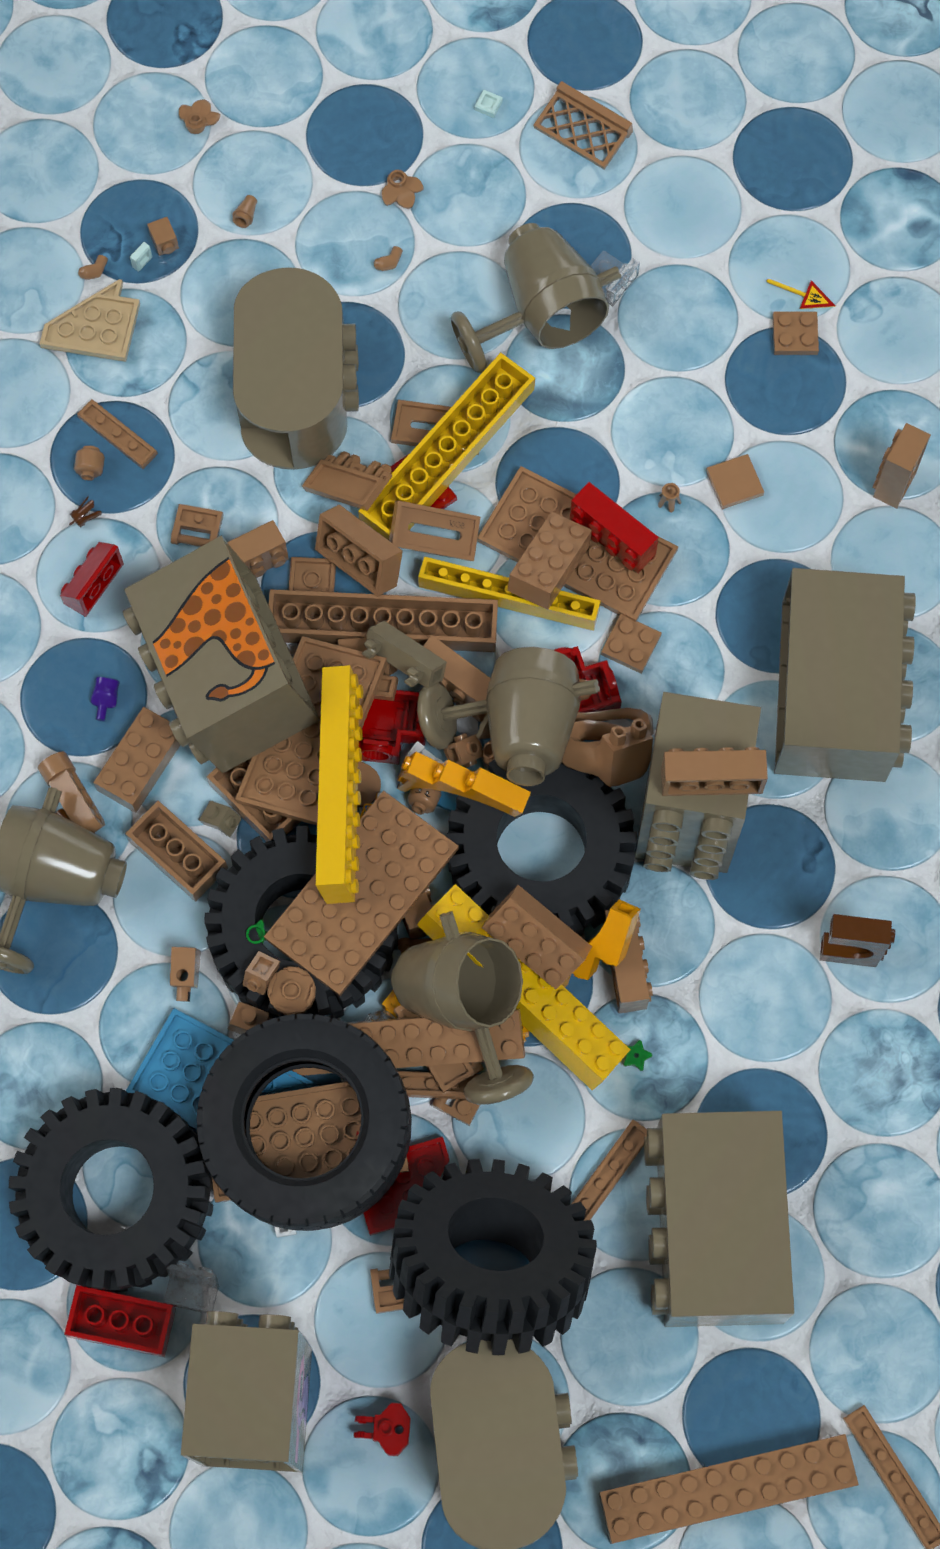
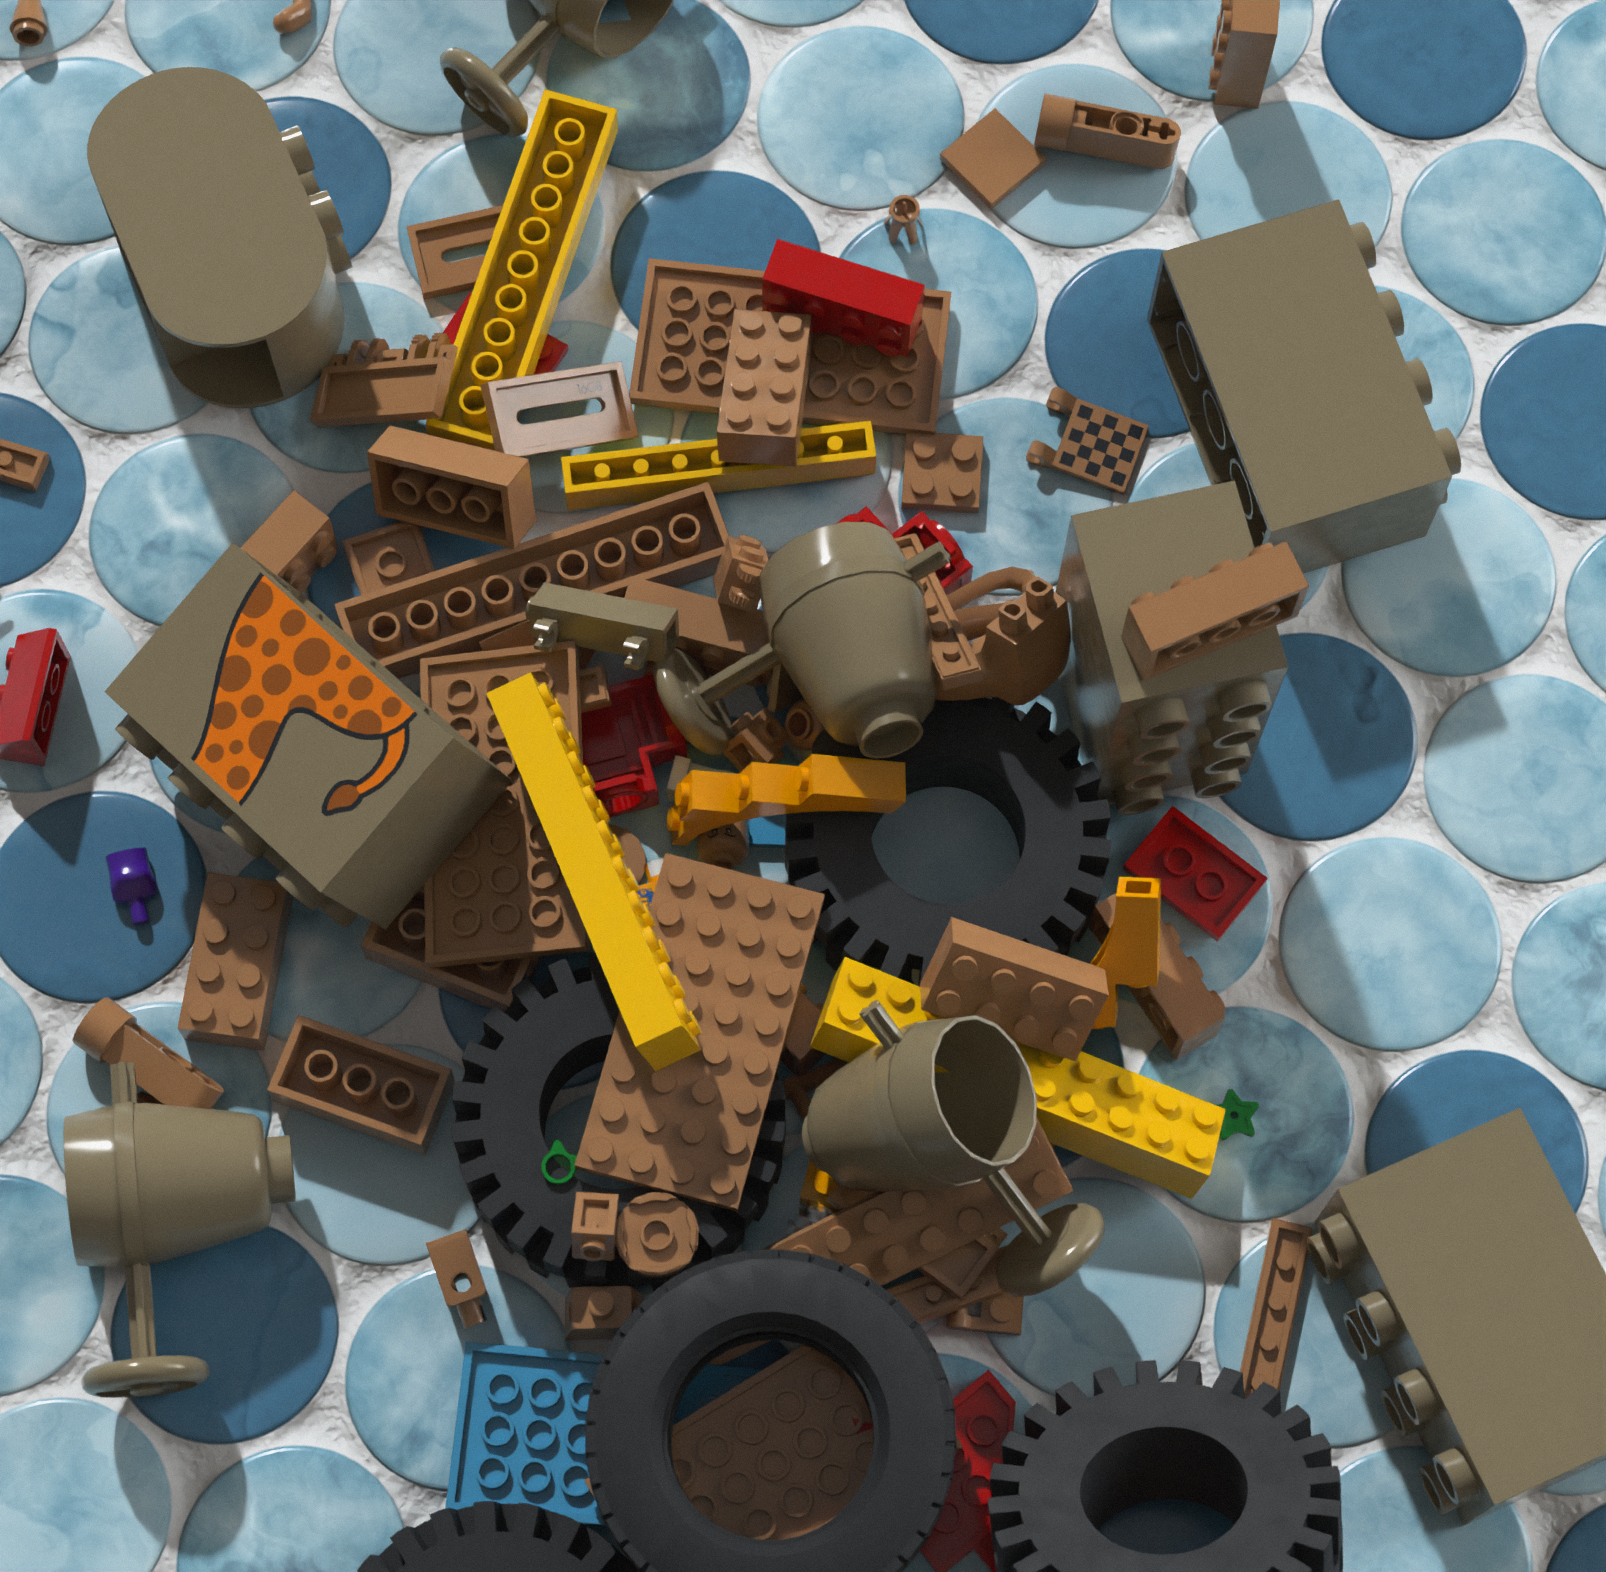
camera: 25 degrees left, 0 degrees up
(196, 520) = (166, 539): medium nougat plate -> none
(220, 818) = (408, 1003): dark tan bracket -> none
(487, 657) = (739, 573): none -> medium nougat hinge
(580, 739) = (952, 655): none -> medium nougat tile
(672, 916) = (1196, 873): none -> red plate
(722, 661) = (1095, 444): none -> medium nougat flag
(803, 490) = (1107, 132): none -> medium nougat beam
(856, 940) = (1504, 796): reddish brown arch -> none

